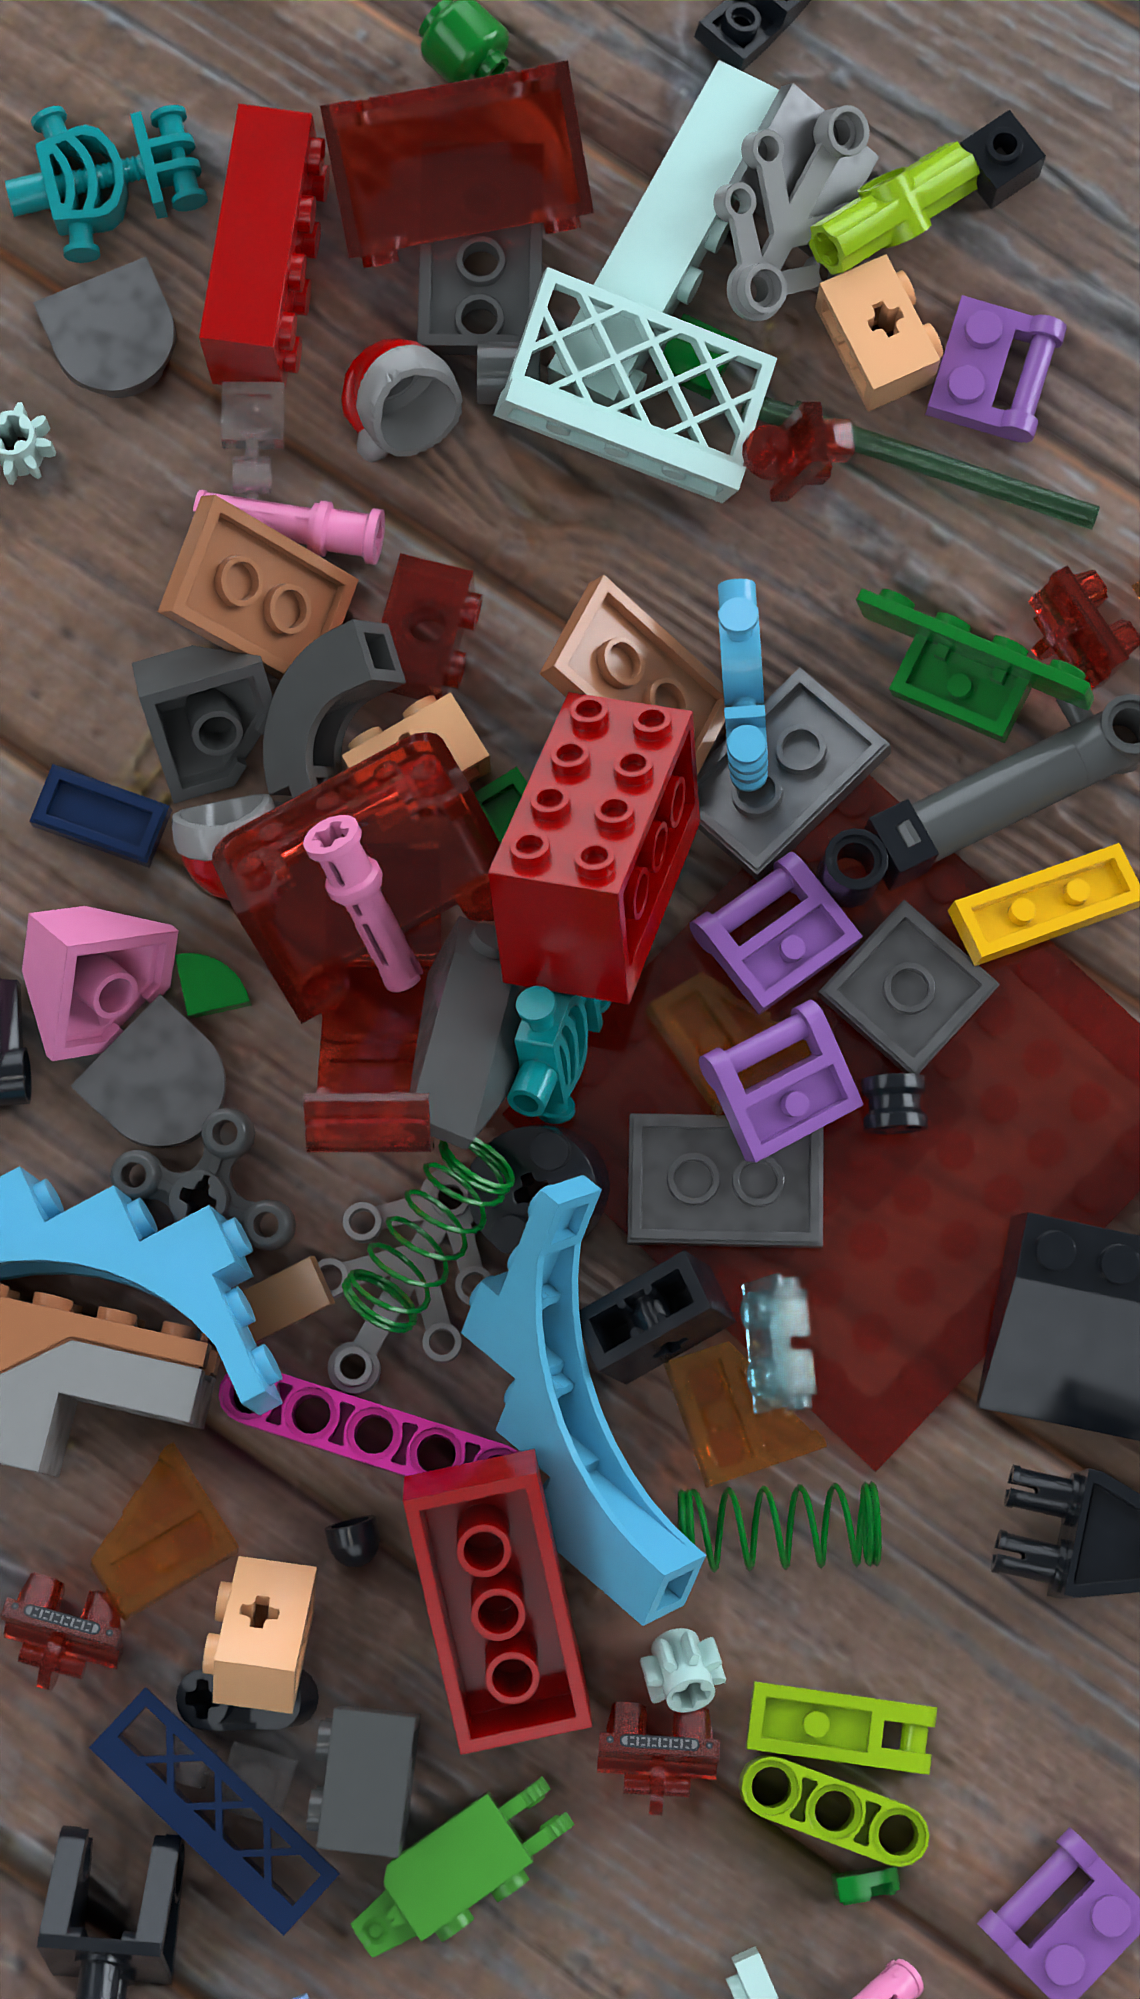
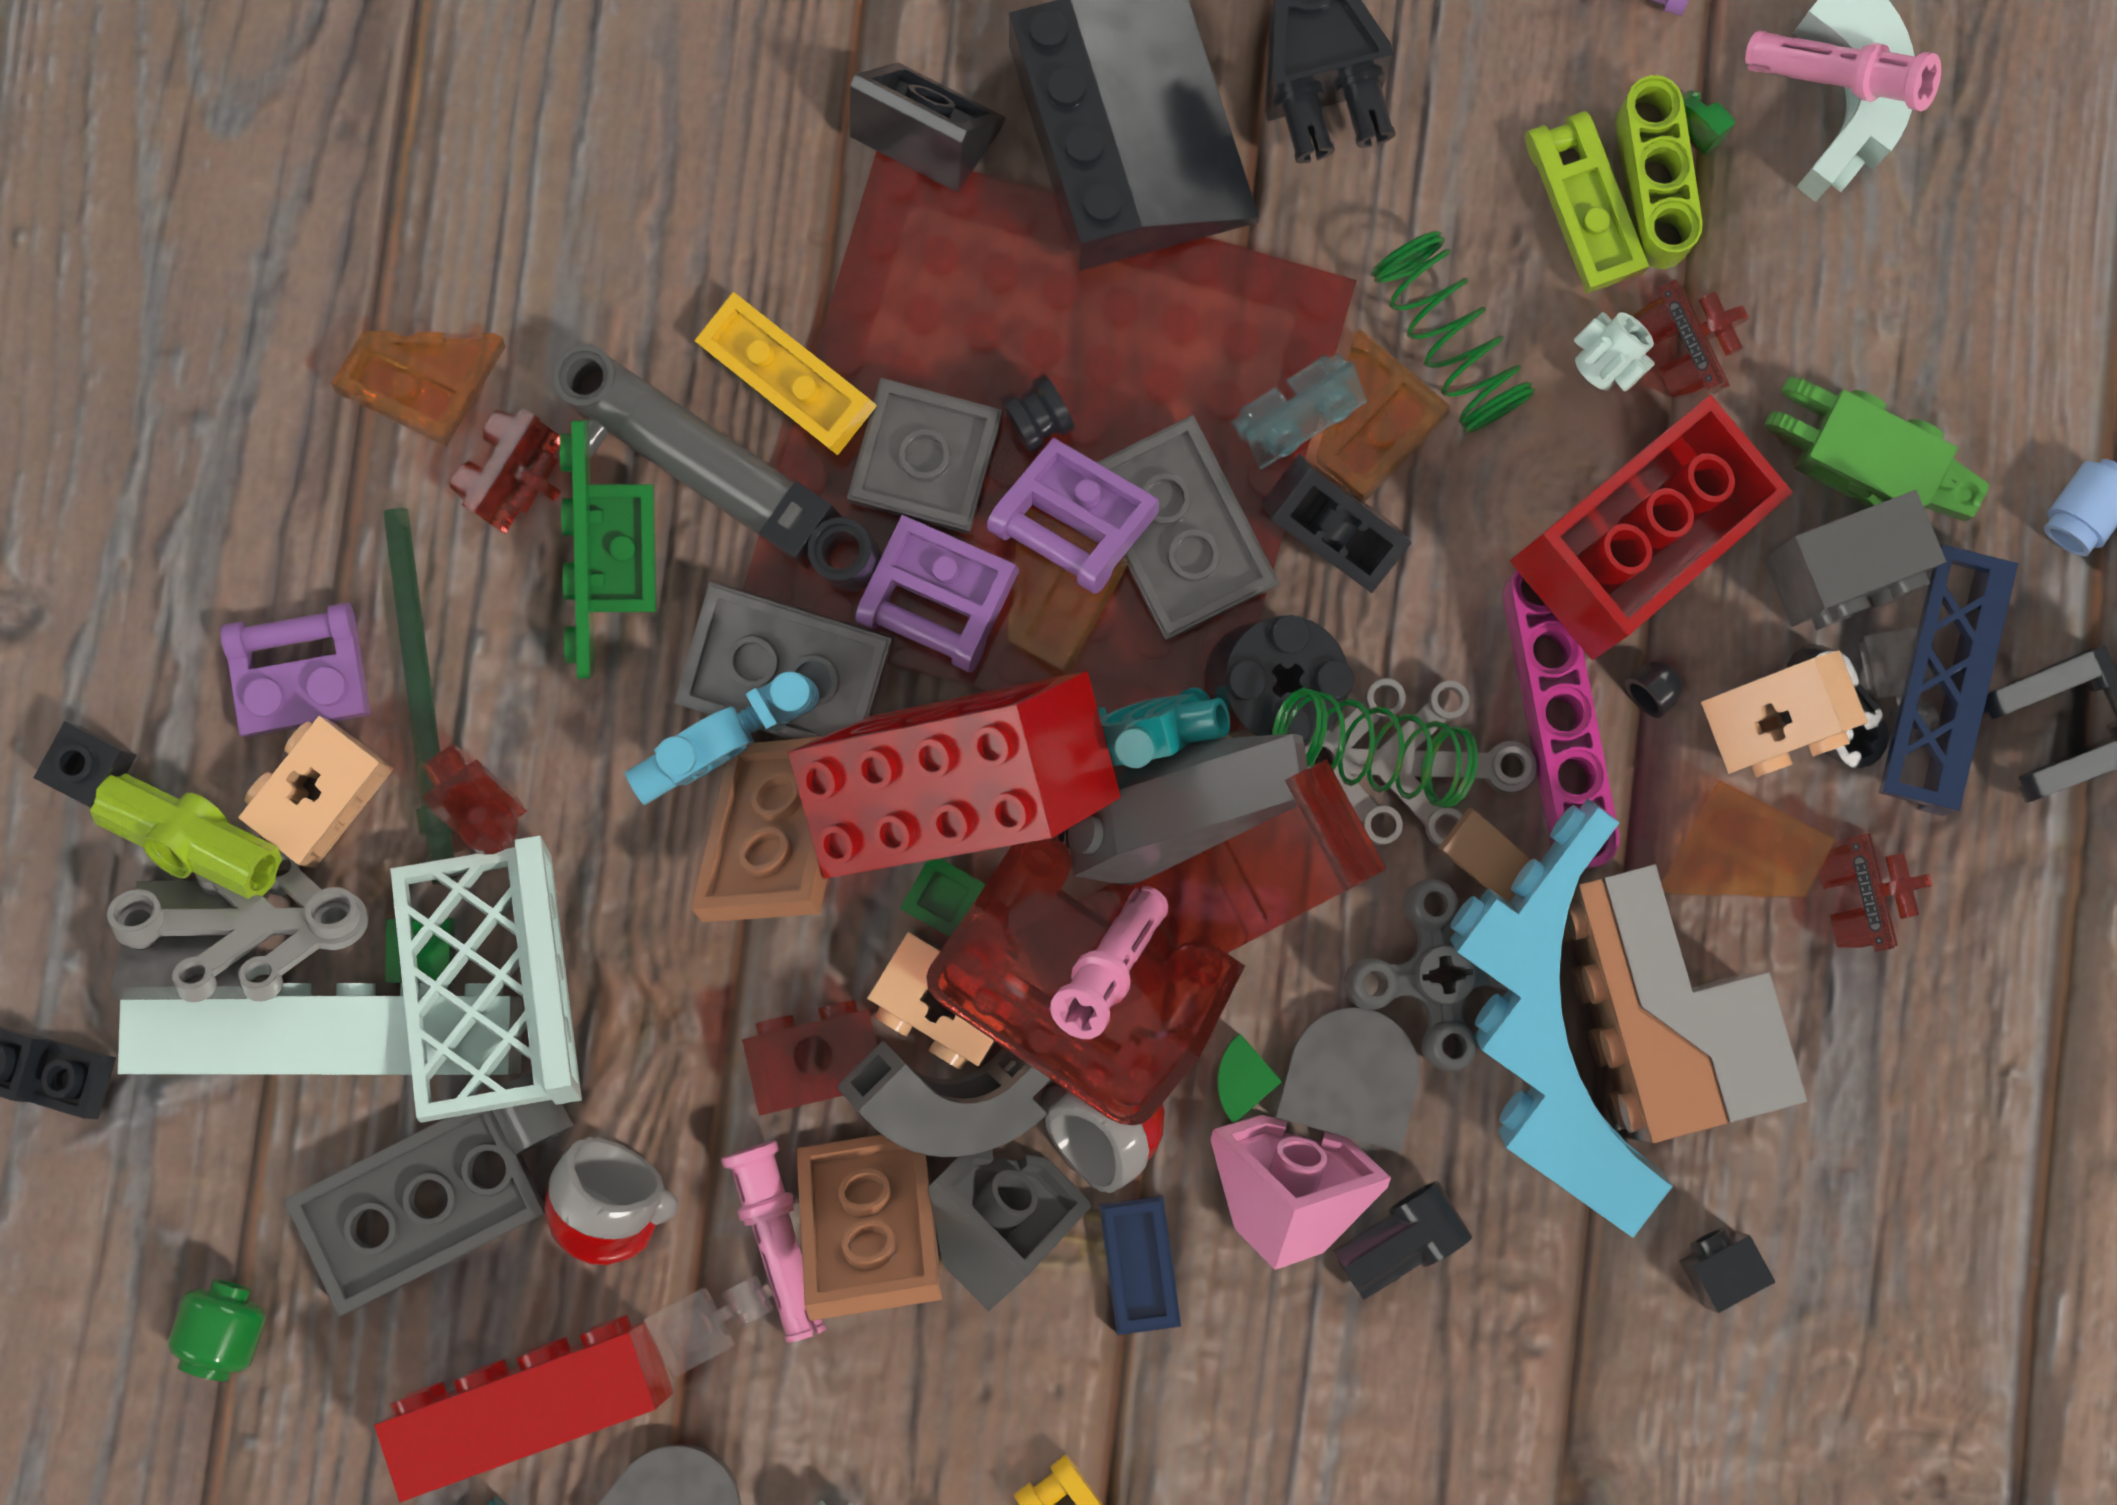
camera: 115 degrees left, 5 degrees up
(457, 161) = (343, 1268): clear red windscreen -> none
(594, 1500) = (1523, 487): medium azure arch -> none

